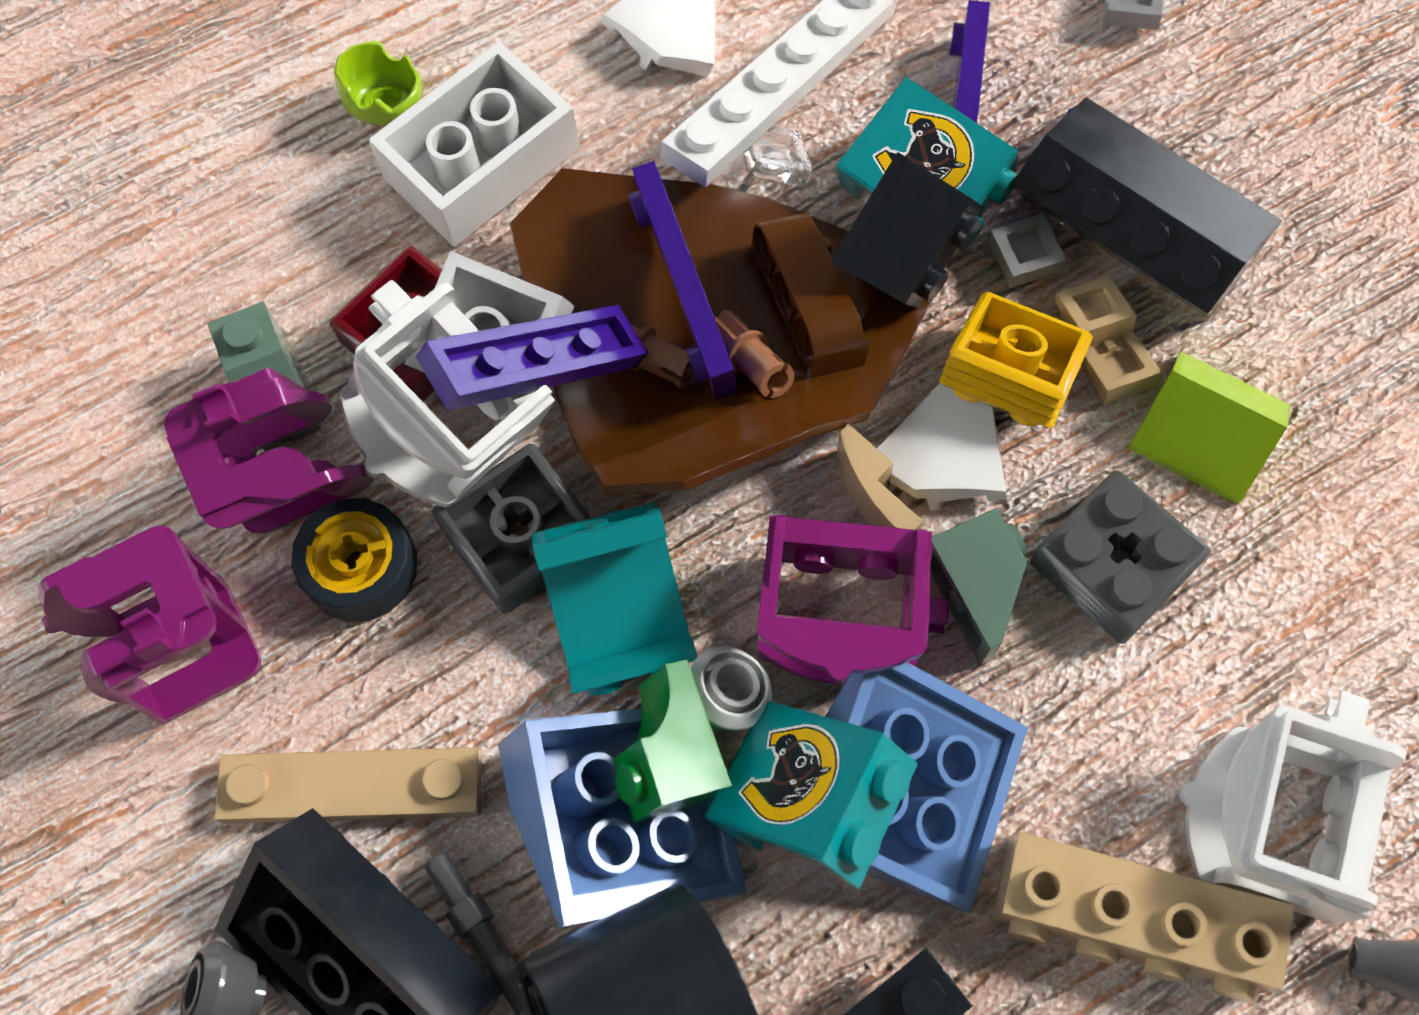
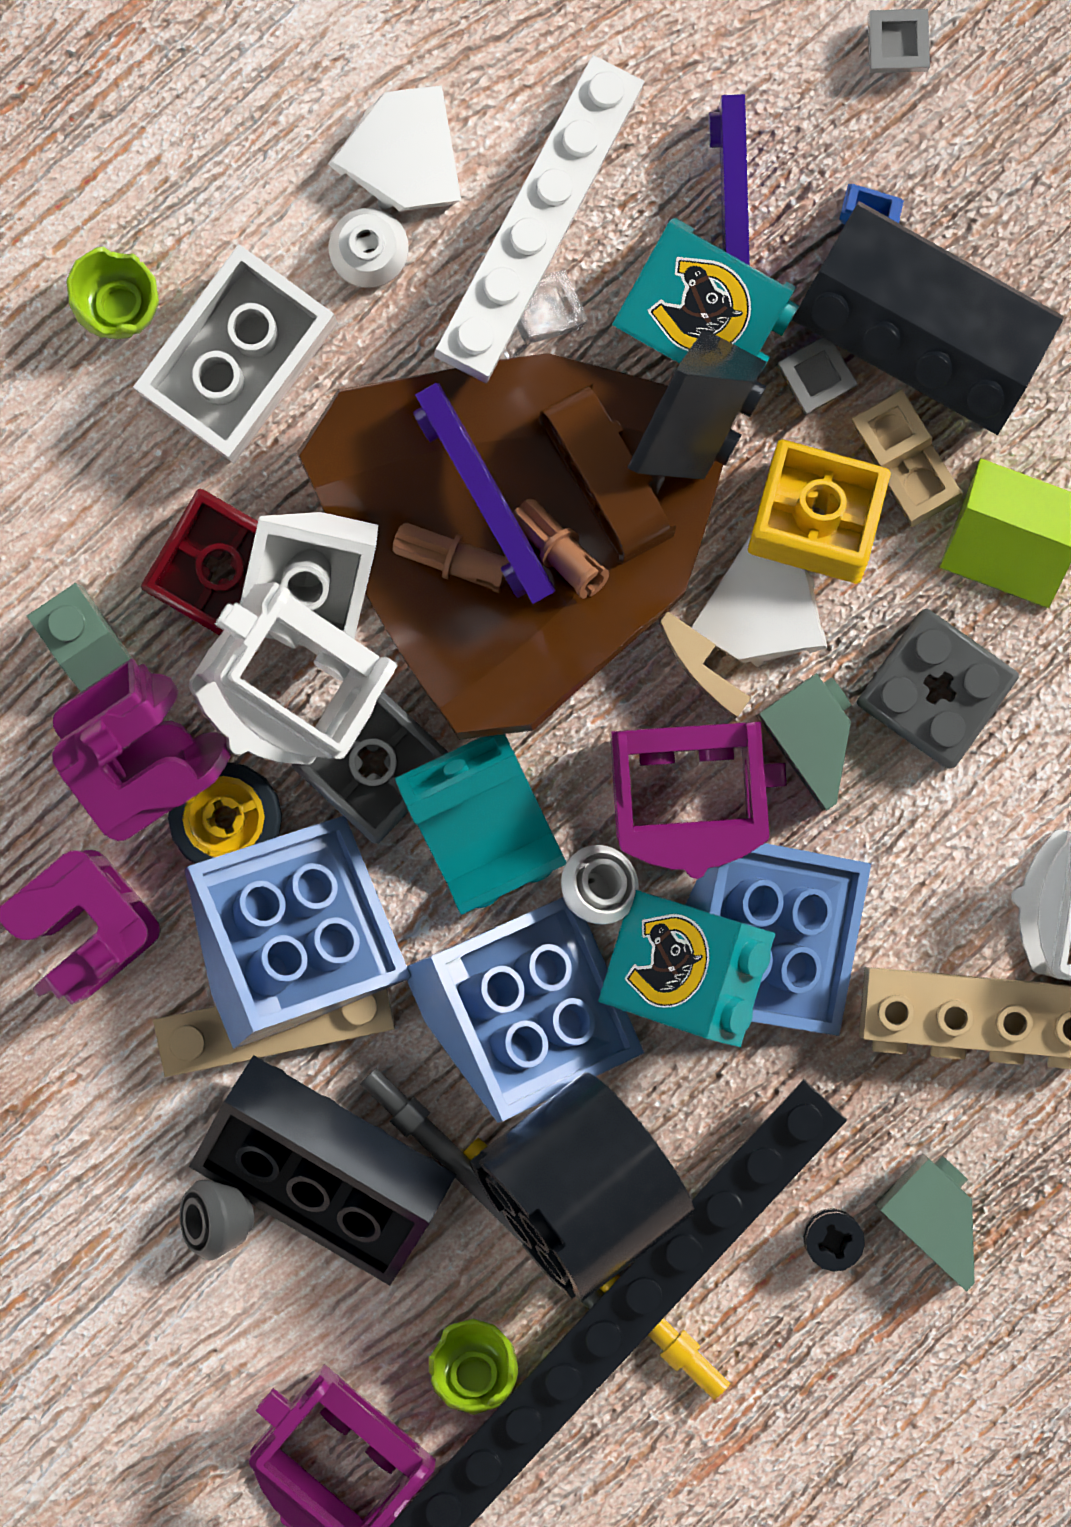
camera: 15 degrees left, 20 degrees up
(384, 680) = (291, 930): none -> medium blue slope
(528, 355) = (369, 622): dark purple plate -> none
(621, 89) = (349, 250): none -> white cone
(675, 752) = (560, 953): arch -> none

